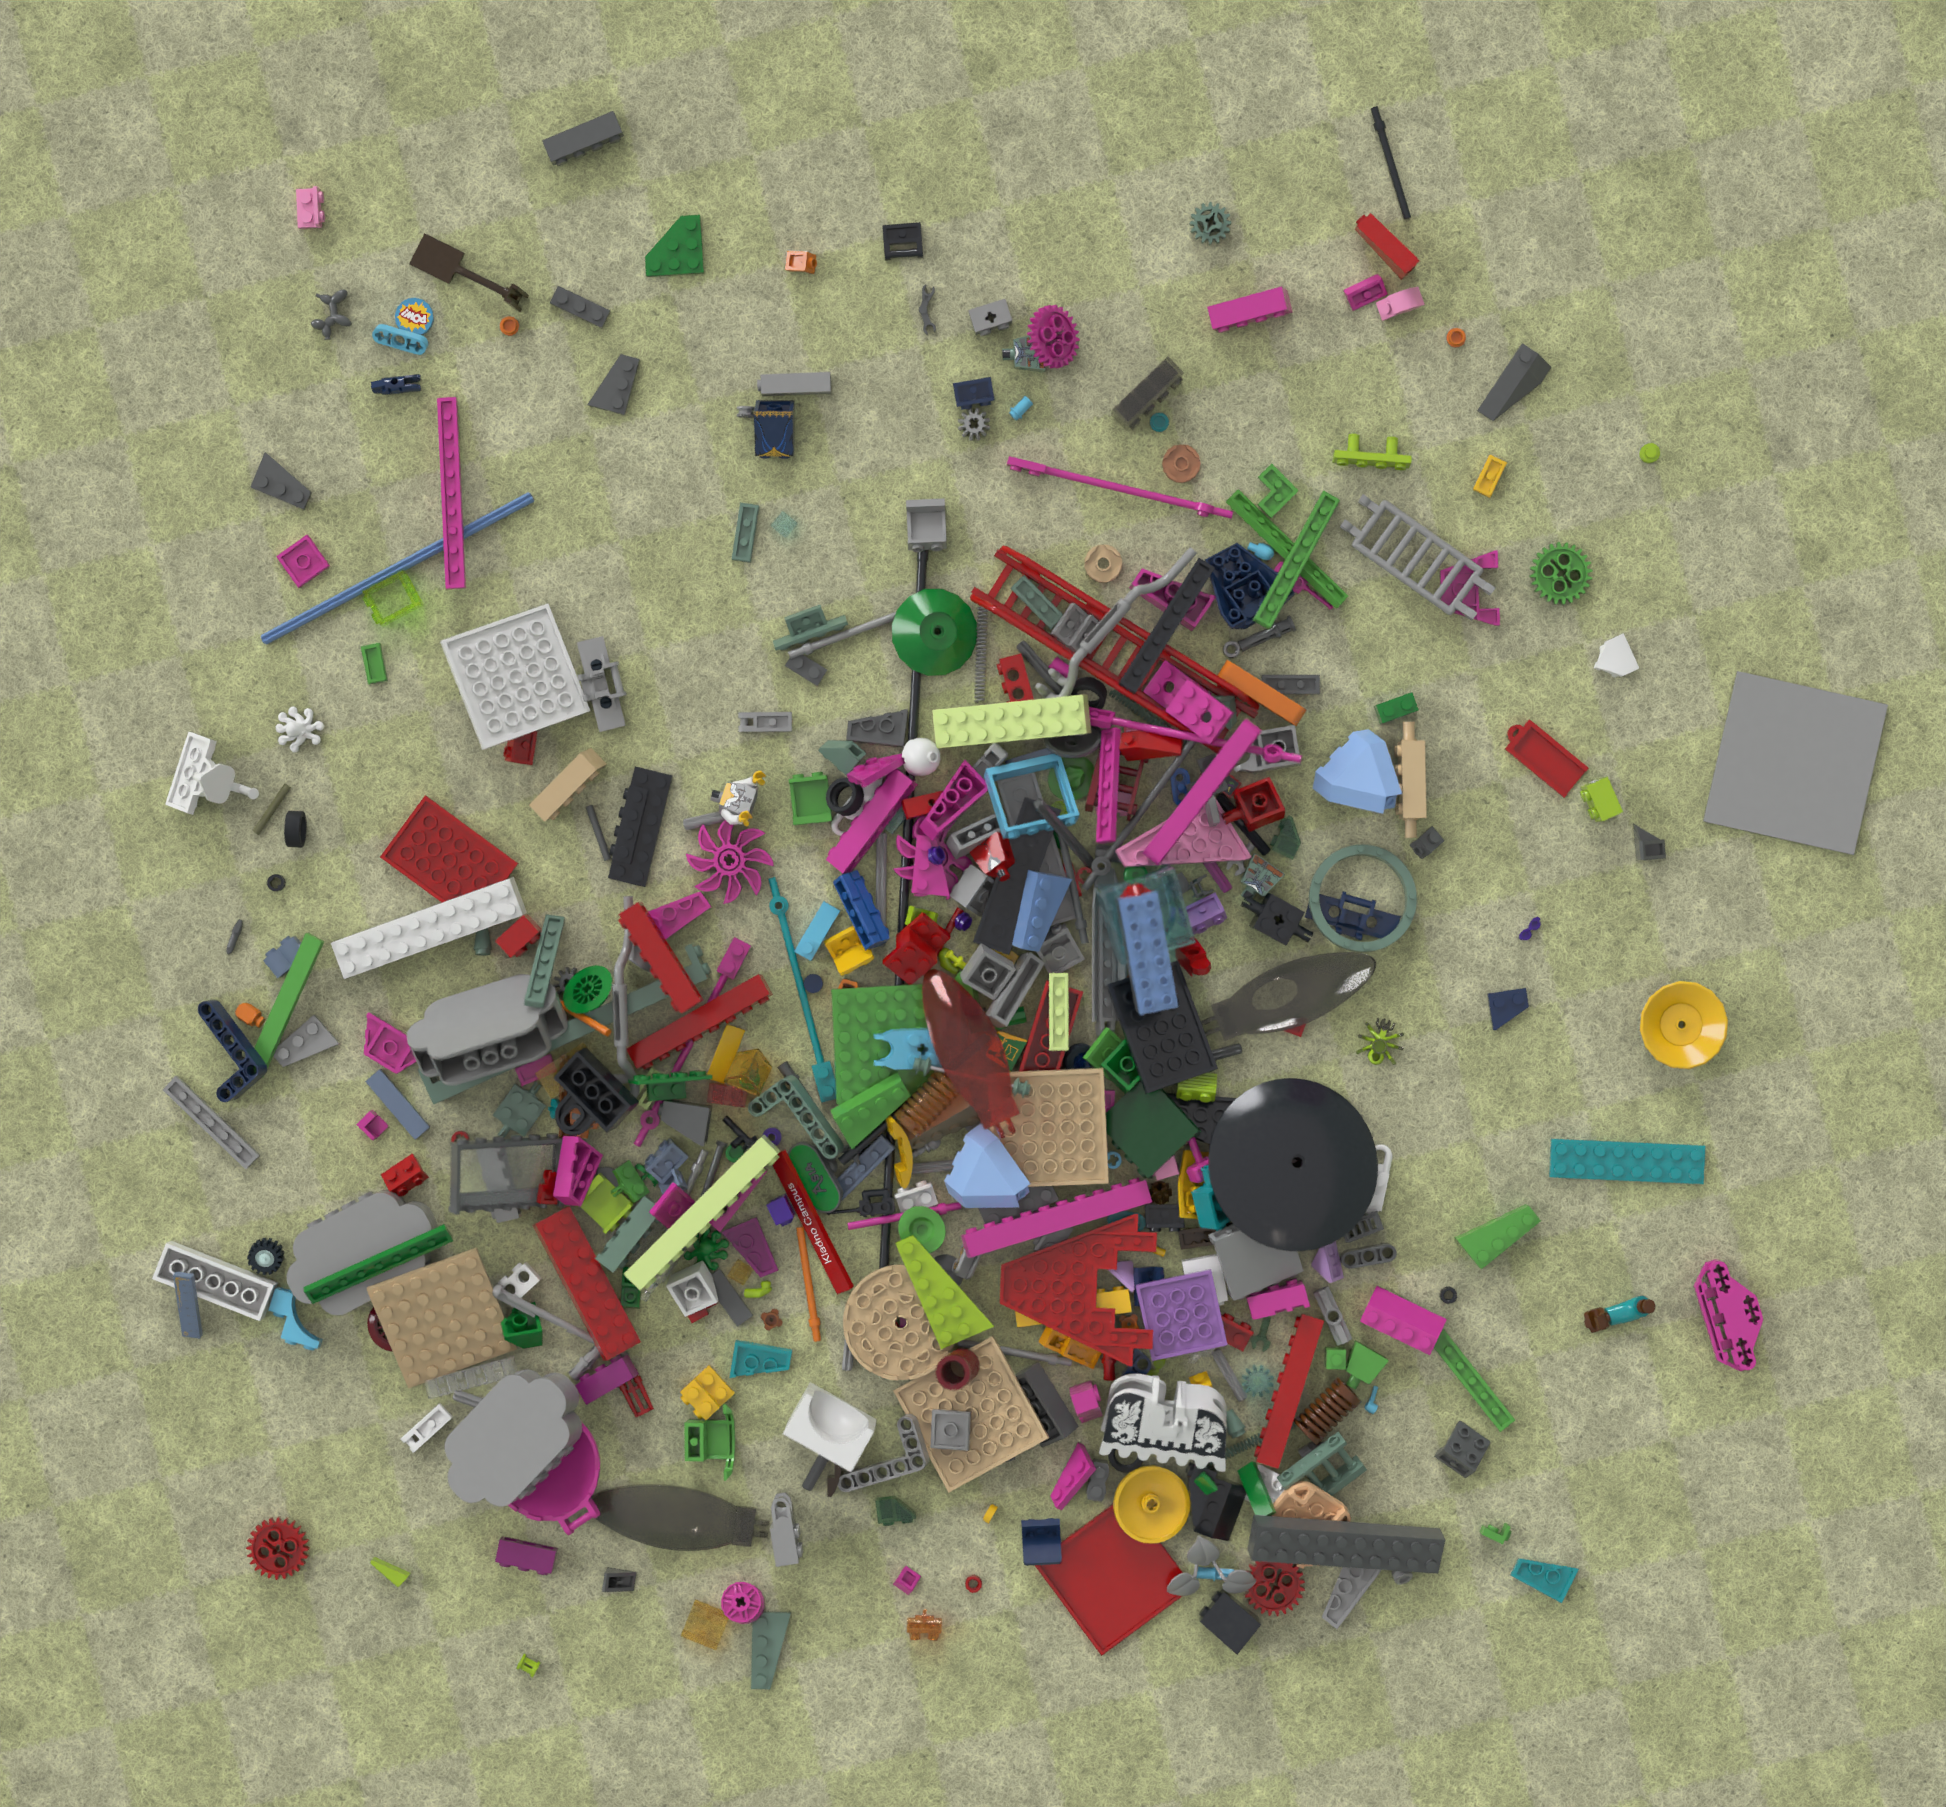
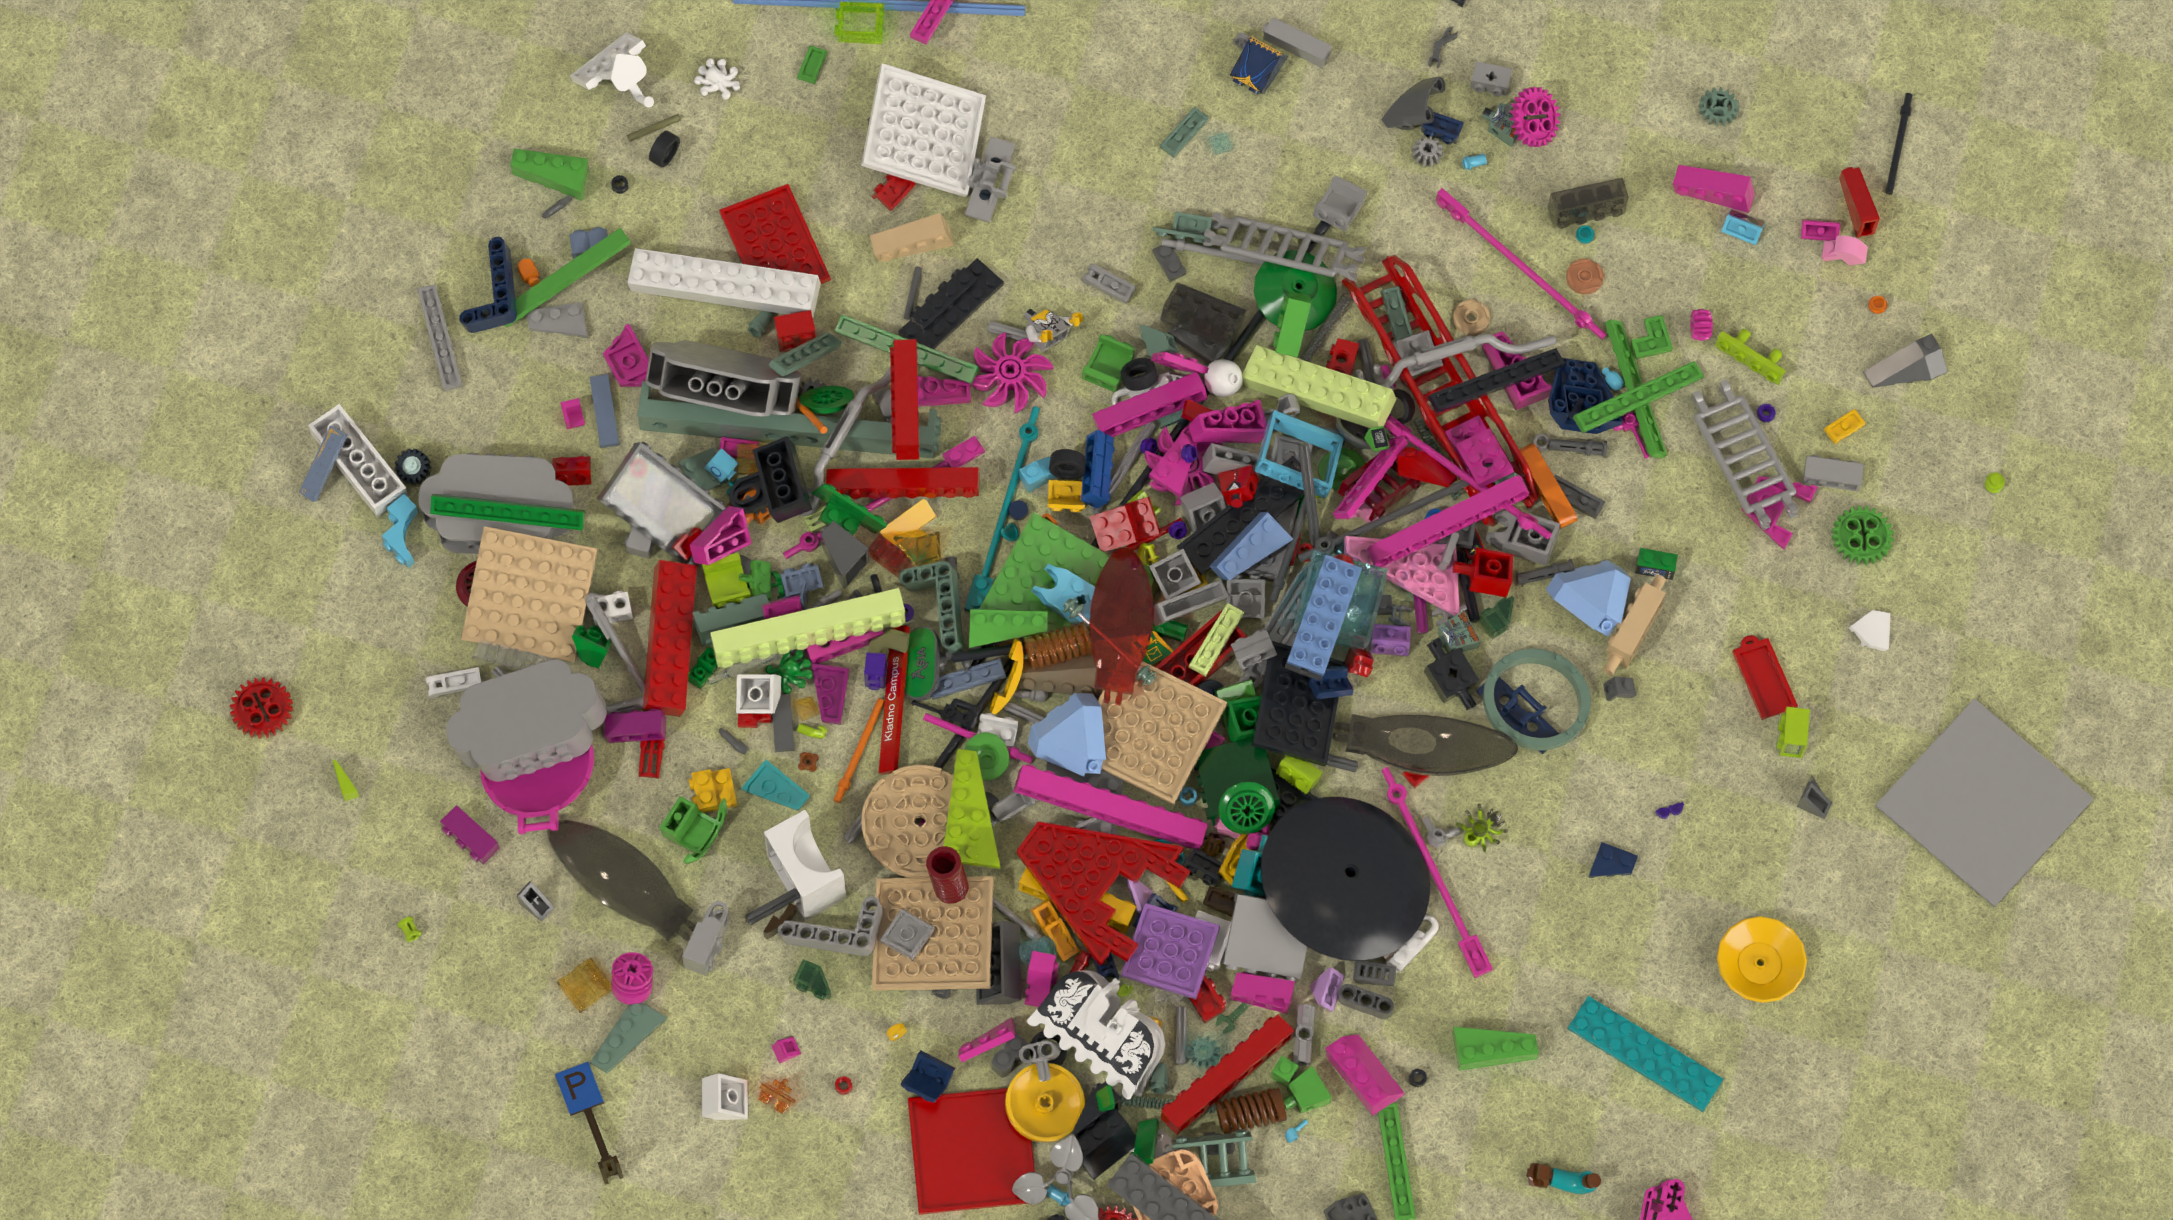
camera: 30 degrees right, 20 degrees down
(213, 906) = (552, 170): none -> bright green wedge
(534, 1101) = (721, 466): none -> medium azure brick
(613, 894) = (926, 356): none -> green plate
(702, 1339) = (737, 745): none -> dark grey piece
(762, 1721) = (581, 1095): none -> piece
(772, 1184) = (891, 639): none -> olive tile
(819, 1008) = (1010, 532): none -> teal piece
(834, 924) = (1059, 464): none -> black tyre
(842, 601) = (1232, 224): none -> light grey bar
(867, 707) = (1202, 315): none -> clear smoke brick
(882, 1654) = (724, 1097): none -> white slope
(892, 858) = (1149, 445): none -> dark purple plate
(935, 389) = (1412, 106): none -> dark grey panel
(953, 674) = (1292, 323): none -> bright green brick
(1067, 1377) = (1040, 944): none -> clear light blue wheel
(1093, 745) = (1377, 438): none -> slope
(1097, 1004) = (1253, 649): none -> light grey brick
(1127, 1473) = (1040, 1057): none -> light grey beam
(1181, 1144) = (1242, 790): none -> green piece
(1186, 992) = (1332, 684): none -> dark blue bracket
(1296, 330) = (1743, 226): none -> medium azure panel
(1305, 771) = (1544, 573): none -> dark grey pin
(1312, 453) = (1701, 324): none -> dark pink gear
(1344, 1072) = (1438, 837): none -> light grey piece
(1418, 499) = (1766, 407): none -> dark purple plate
(1428, 1153) = (1469, 946): none -> dark pink bar
(1503, 528) = (1832, 473): none -> light grey brick

